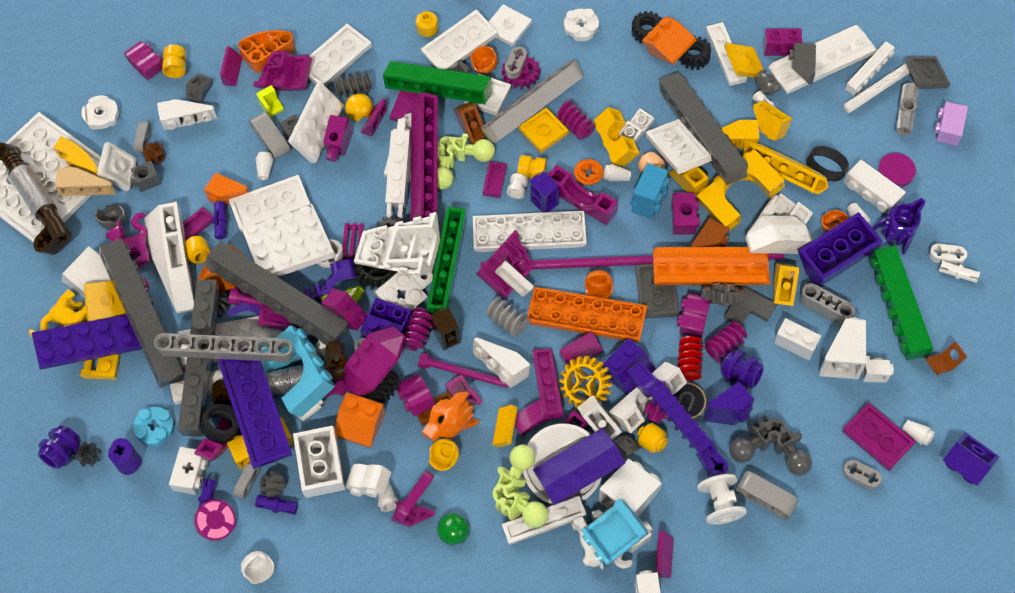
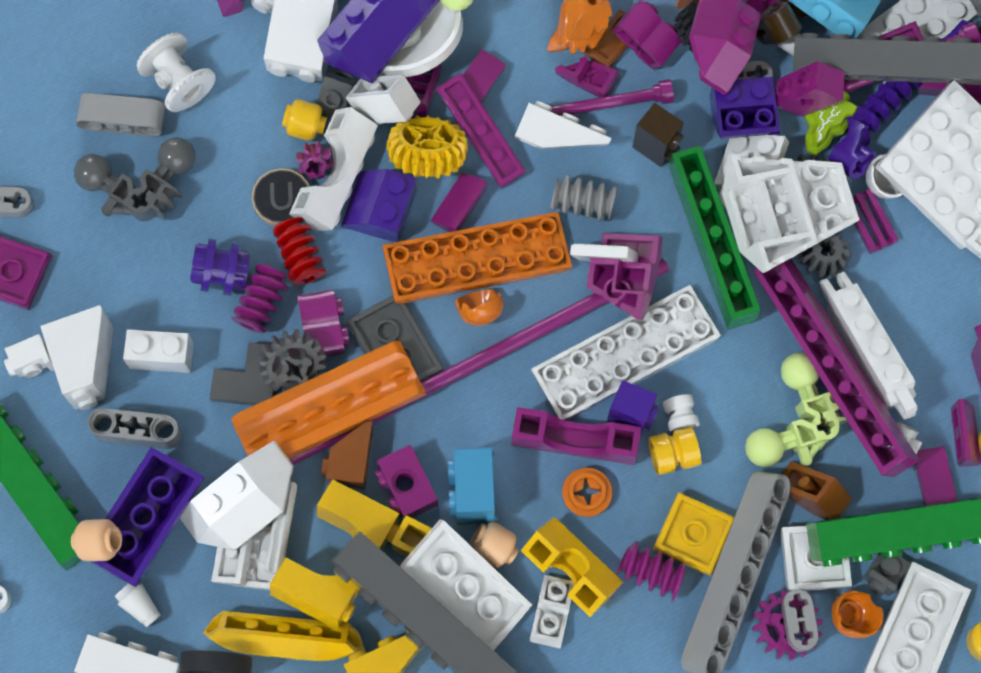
camera: 150 degrees right, 10 degrees up
(417, 329) = (696, 130): magenta piece -> none
(494, 179) = (722, 416): magenta tile -> none
(504, 426) = (508, 51): yellow tile -> none
(616, 173) = (542, 507): white cone -> none
(706, 450) = (323, 159): dark purple piece -> none
(730, 406) = (214, 200): dark purple slope -> none
(785, 284) = (209, 432): yellow slope -> none
(832, 219) = (170, 572): orange hair -> none
(872, 237) = (96, 540): none -> light nougat head
(902, 223) = (63, 617): dark purple piece -> none

